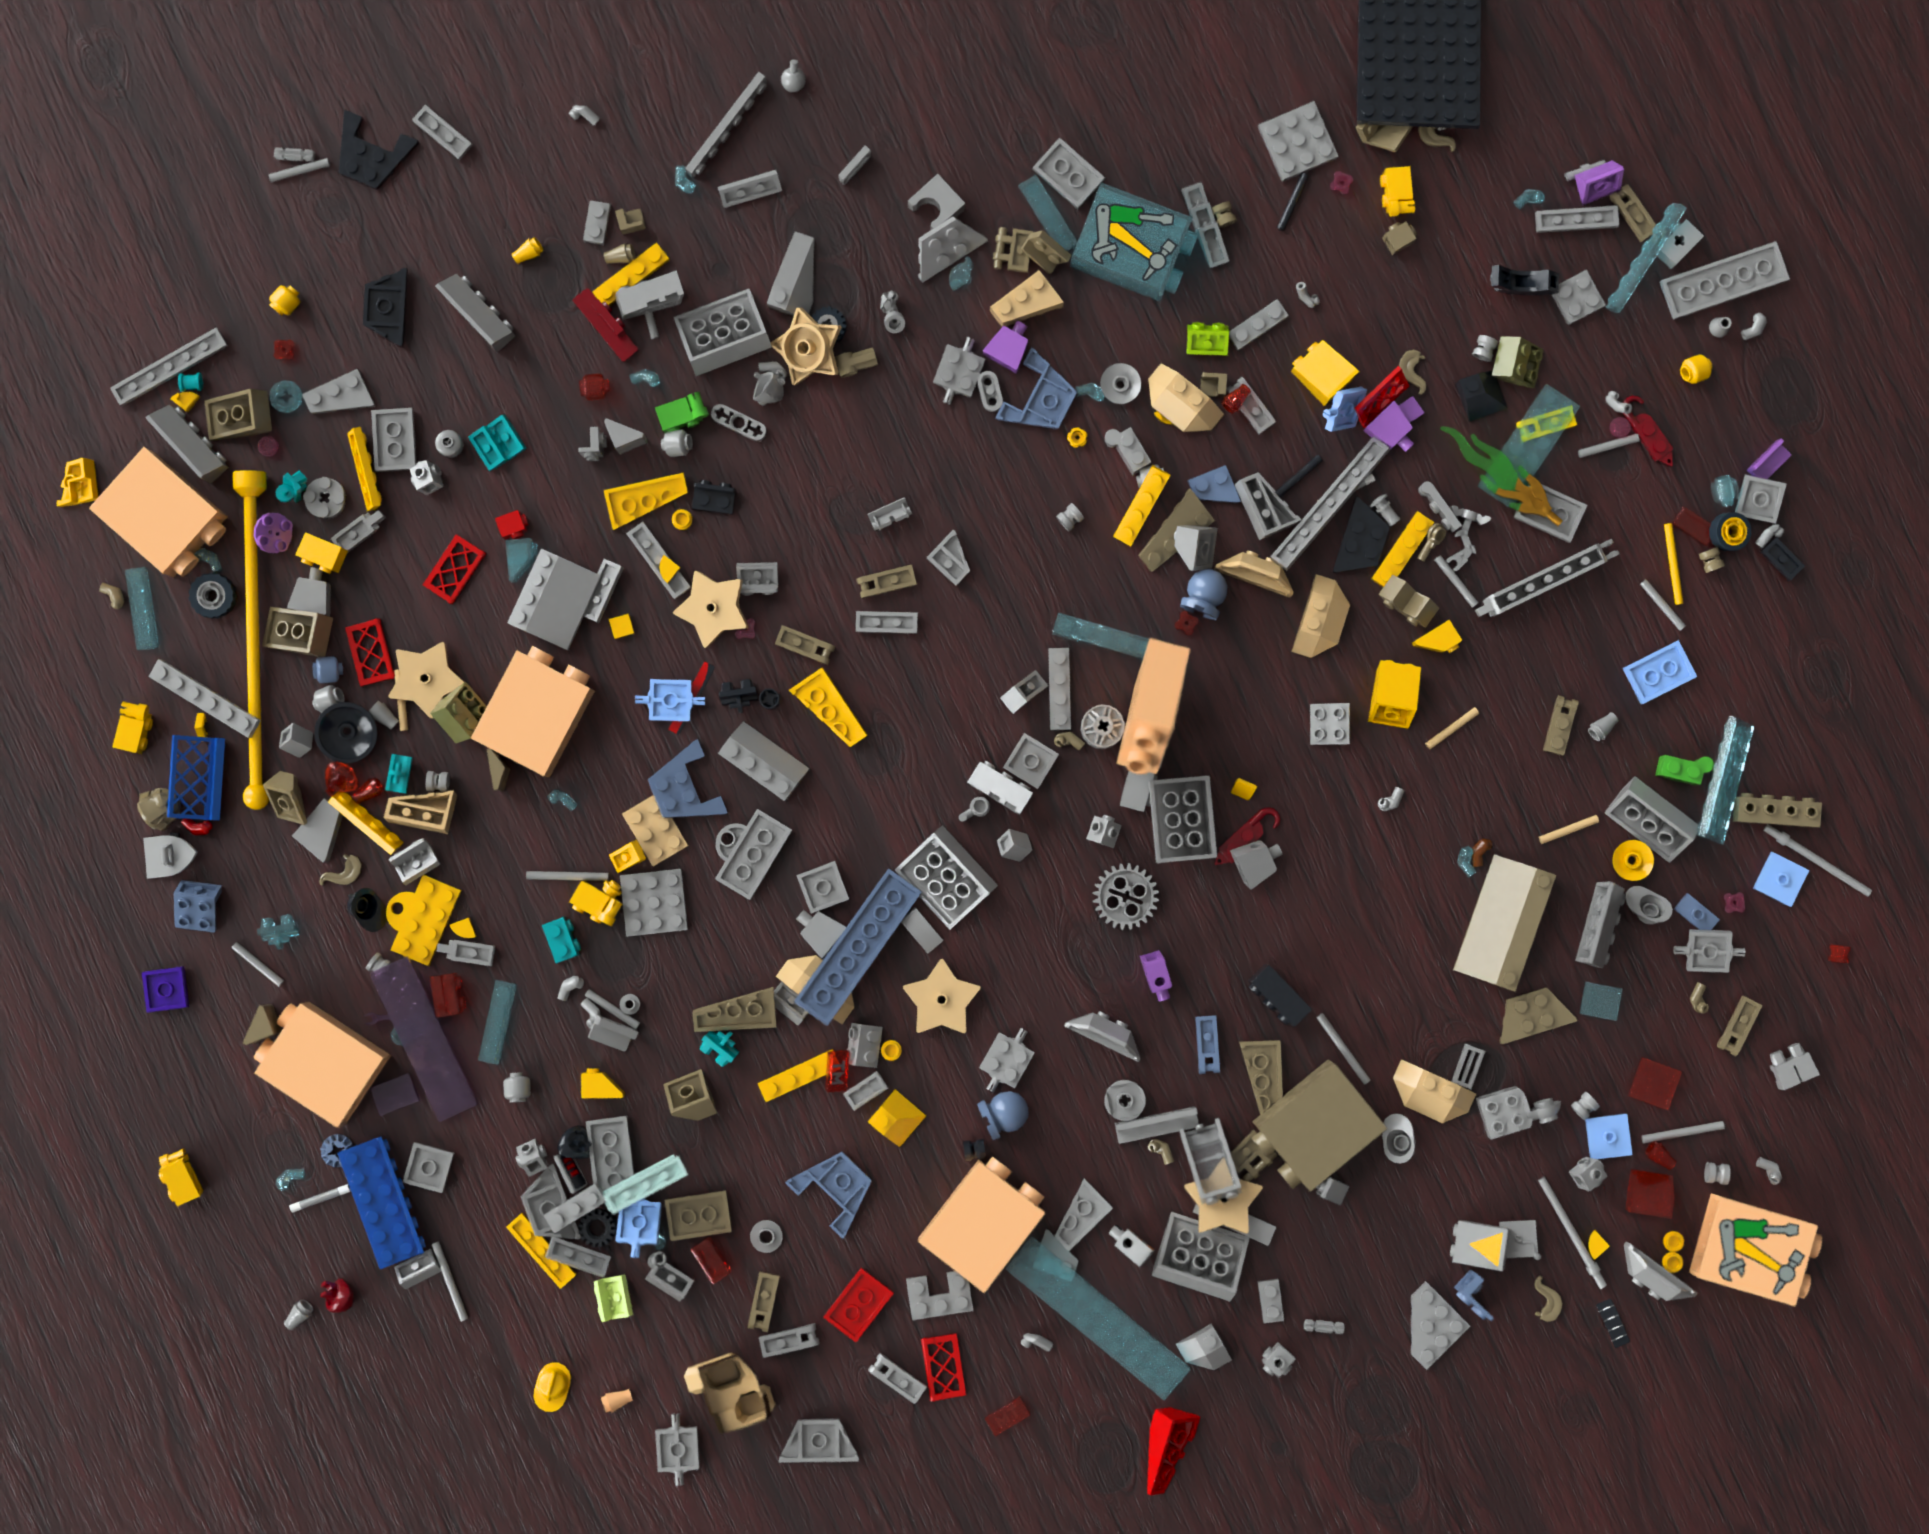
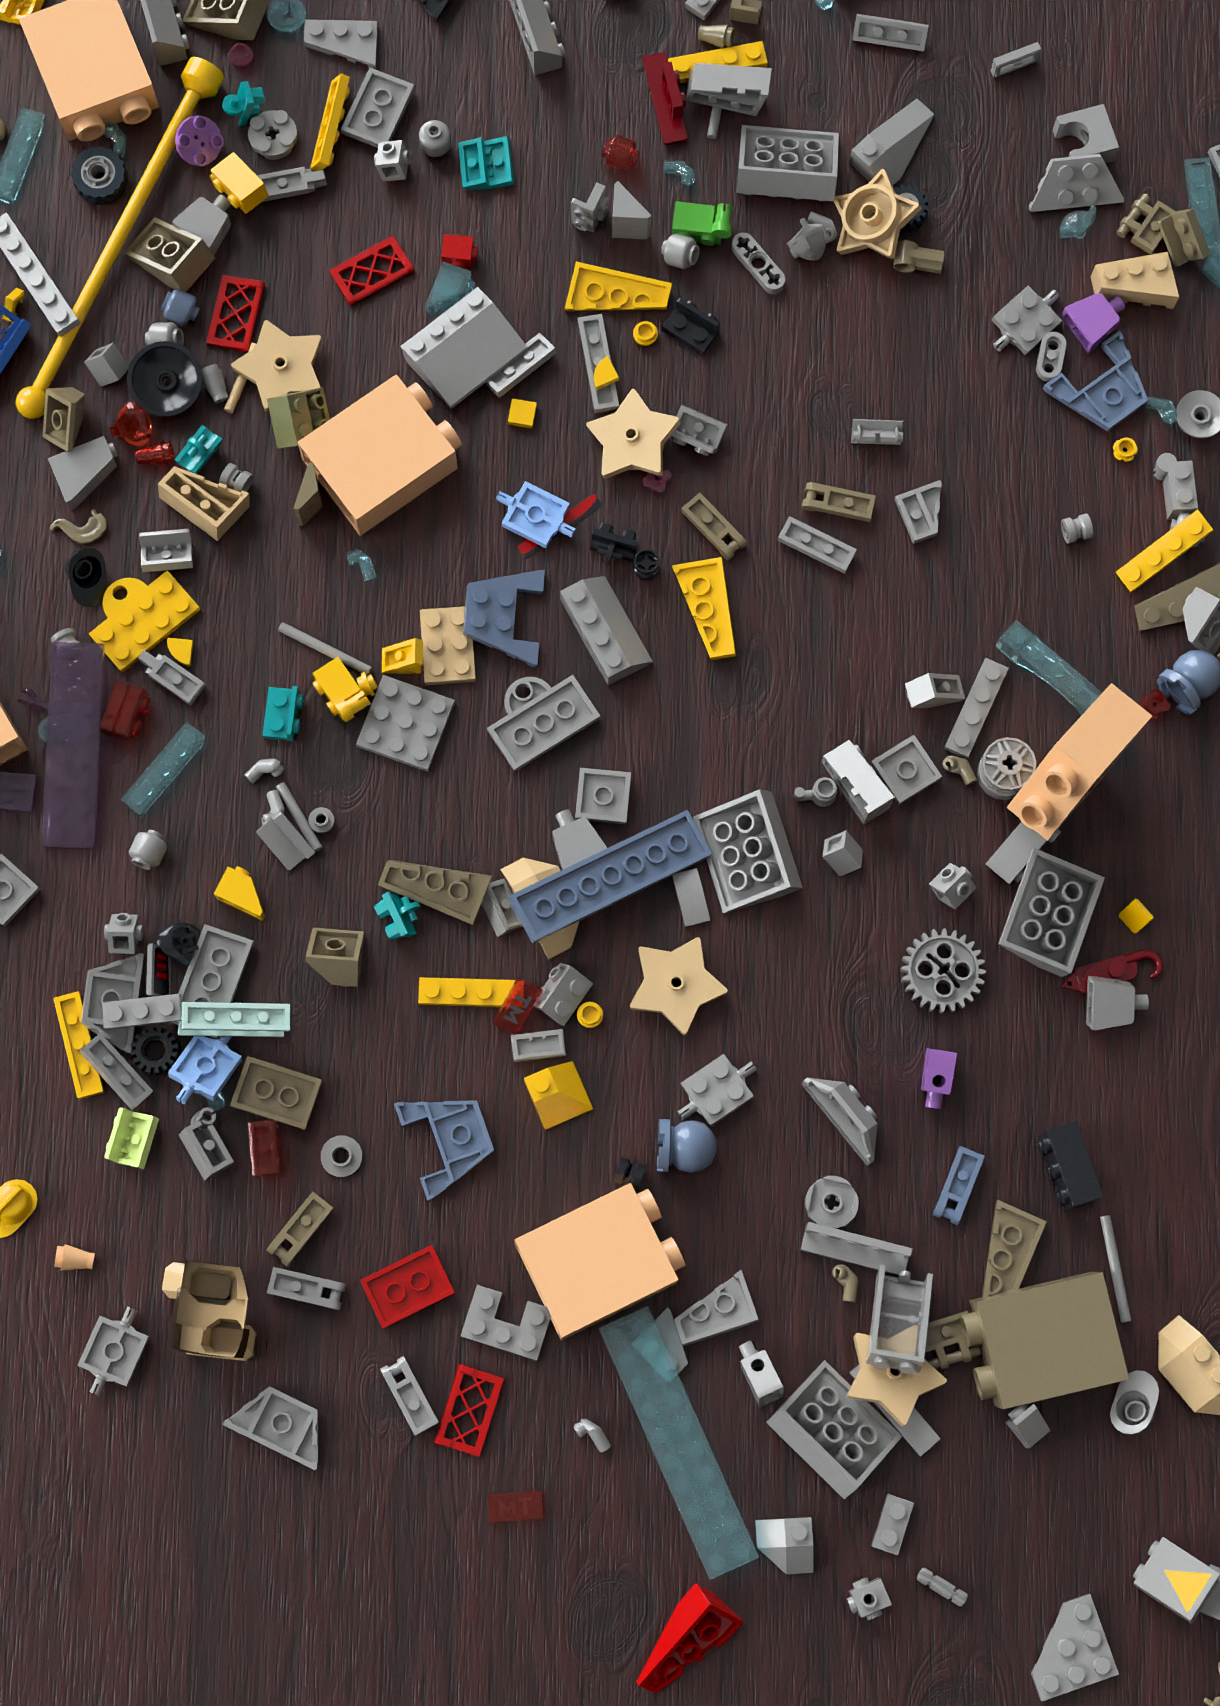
camera: 25 degrees right, 10 degrees down
(365, 822) = (138, 491): yellow plate -> none
(894, 320) = (981, 233): light grey arm -> none
(1466, 1286) = (1145, 1620): sand blue bracket -> none

